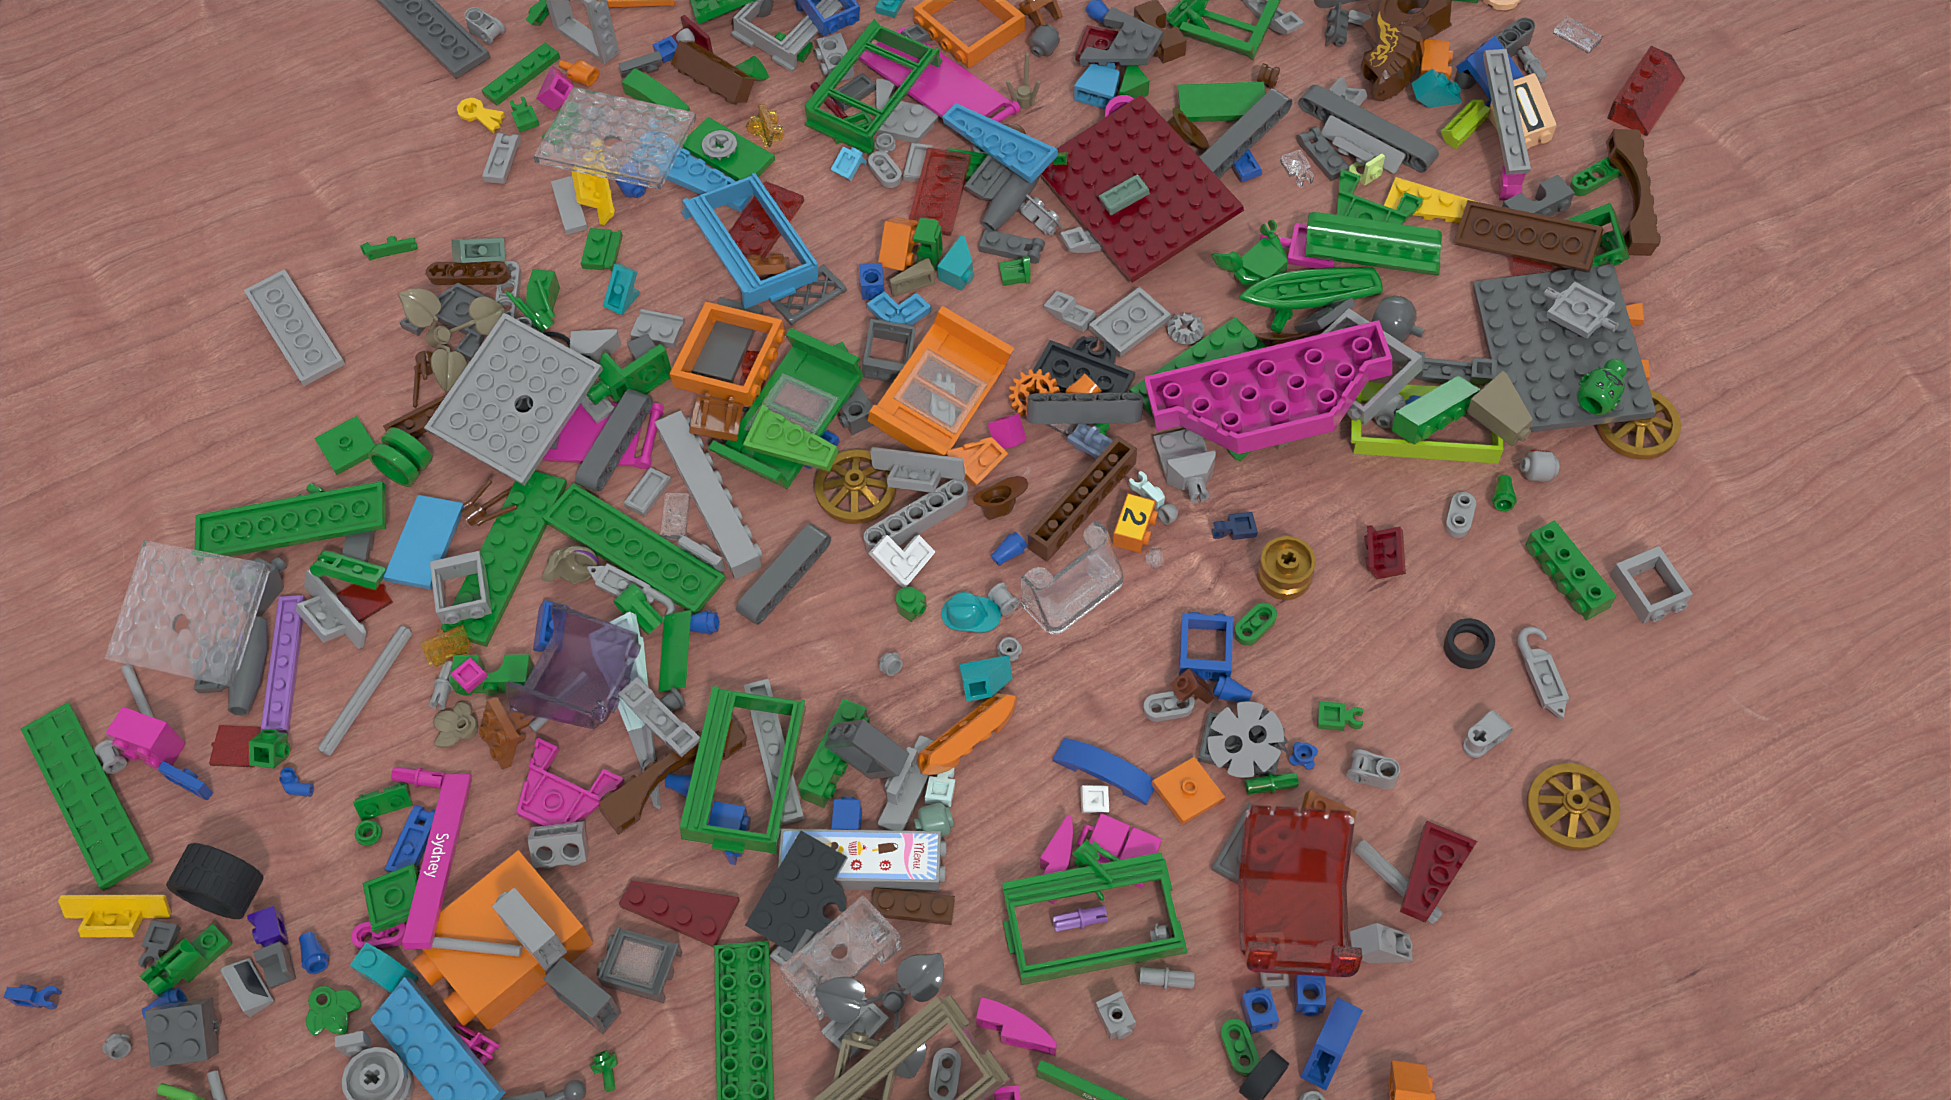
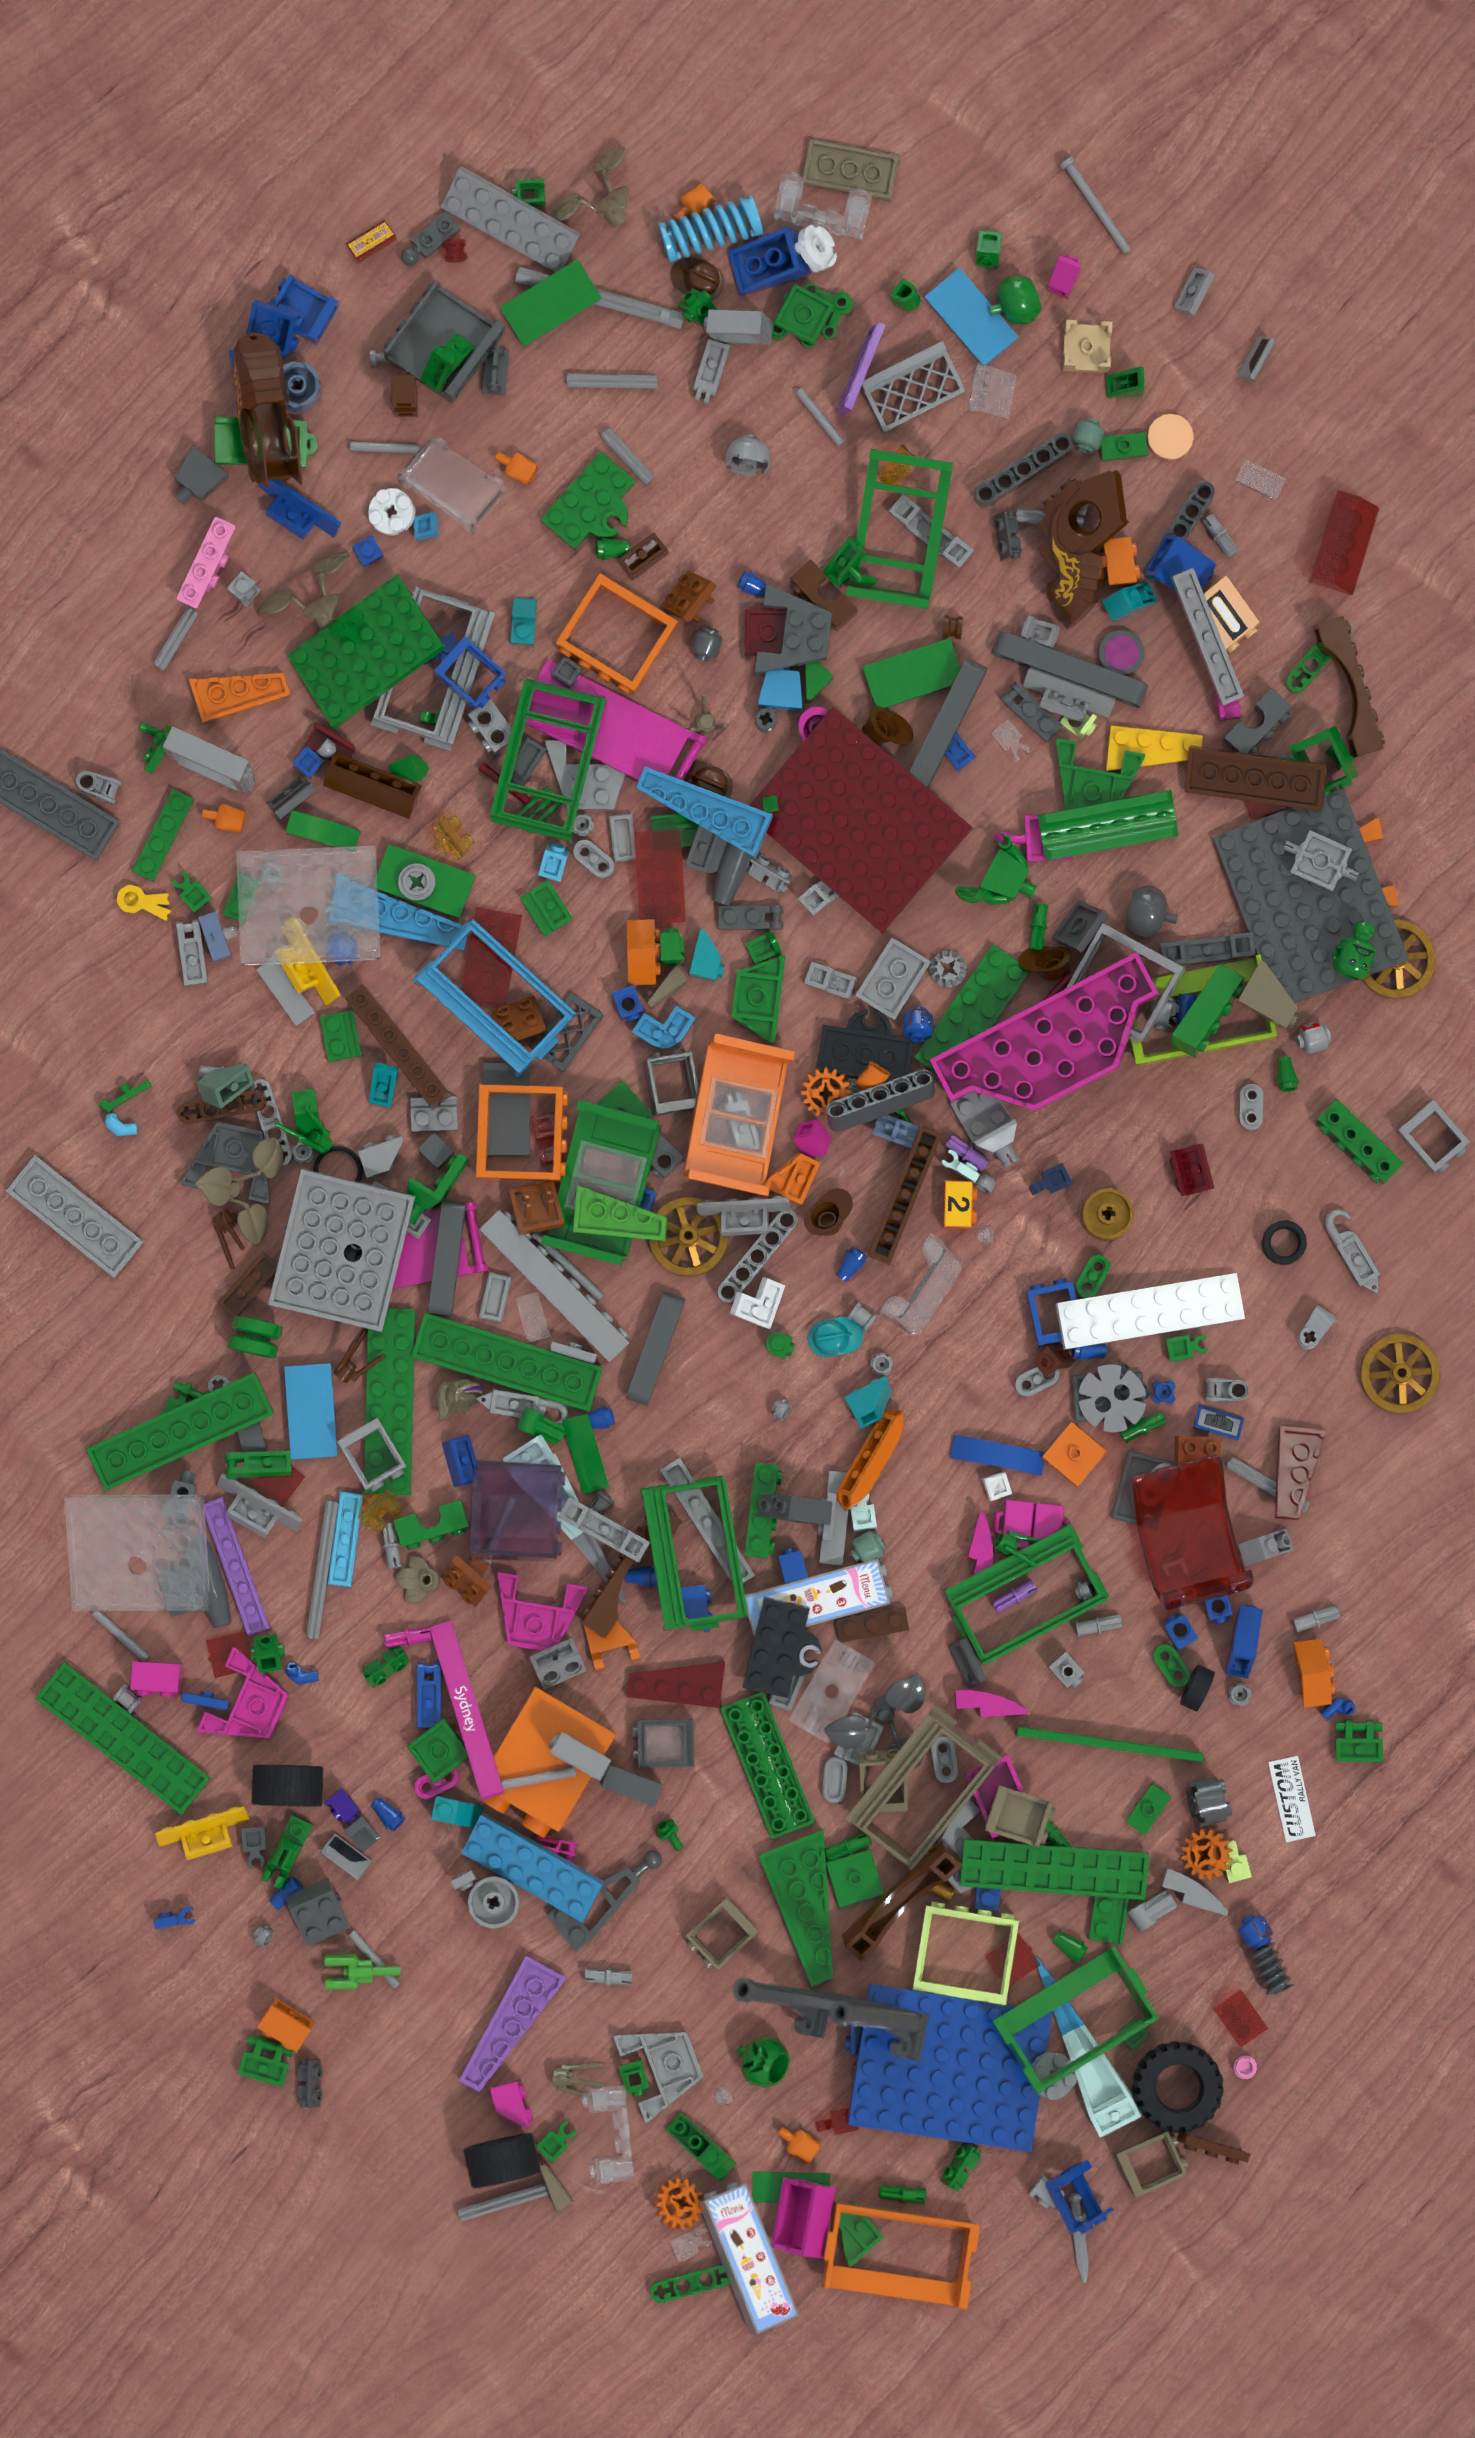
camera: 25 degrees left, 25 degrees up
(232, 802) = (256, 1706): none -> dark pink wing
(333, 1013) = (427, 1857): green plate -> none
(345, 445) = (187, 1330): green plate -> none
(364, 827) = (378, 1698): green plate -> none
(370, 271) = (118, 1128): none -> medium azure arm
(400, 671) = (345, 1539): none -> medium azure tile
(469, 675) = (417, 1536): dark pink tile -> none
(525, 148) = (217, 936): none -> sand blue piece
(555, 89) = (214, 850): dark pink slope -> none
(630, 840) = (616, 1638): none -> orange flag
(646, 263) = (397, 1047): none -> reddish brown brick
(730, 485) = (569, 1267): none -> light grey bar
(813, 1064) = (835, 1779): none -> light grey tile
(827, 195) = (546, 908): none -> green plate
(998, 304) = (758, 997): none -> green wing
(1005, 974) = (967, 1662): none -> dark grey tile
(1075, 102) = (772, 717): none -> dark grey bush
(1124, 194) = (850, 843): sand green plate -> none
(1142, 359) = (918, 1024): none -> blue head
(1158, 480) = (967, 1152): none -> medium lavender axle
(1309, 668) = (1150, 1311): none -> white plate
(1313, 288) = (1062, 893): green piece -> none
(1367, 808) = (1218, 1423): none -> slope
(1421, 125) = (1121, 652): none -> tile
(1423, 1043) = (1316, 1618): none -> light grey axle
(1465, 123) = (1166, 634): lime piece -> none

